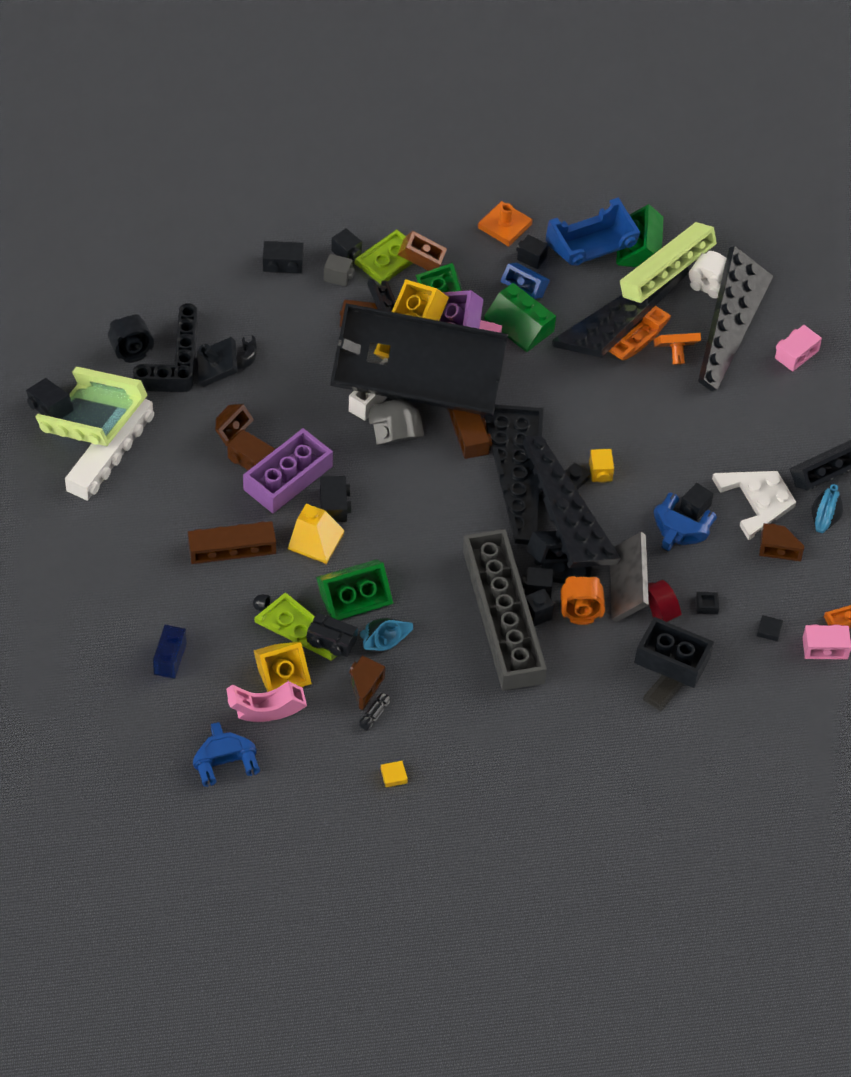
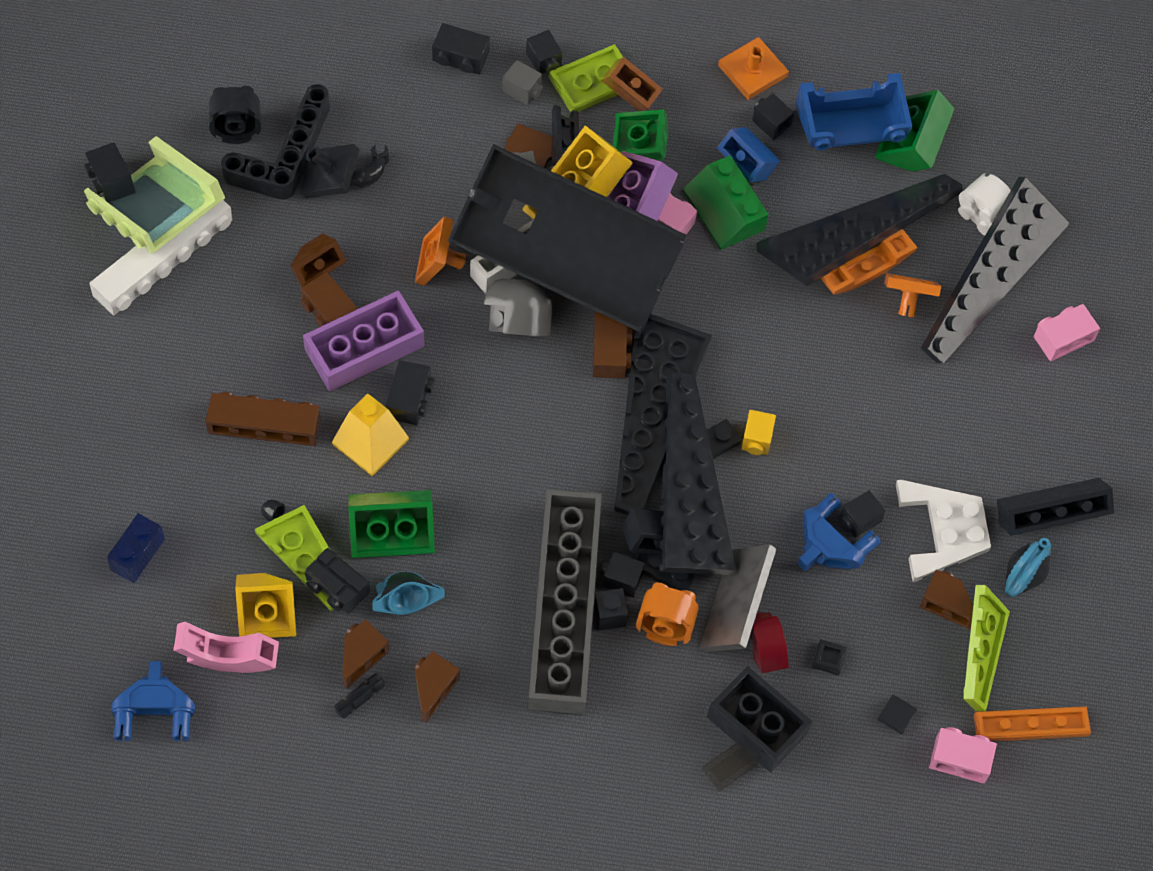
camera: 15 degrees right, 10 degrees up
(319, 397) = (436, 253): none -> orange tile
(394, 774) = (353, 788): yellow tile -> none
(426, 688) = (434, 682): none -> reddish brown slope
(668, 262) = (936, 175): yellowish green brick -> none
(816, 565) = (985, 643): none -> lime wing

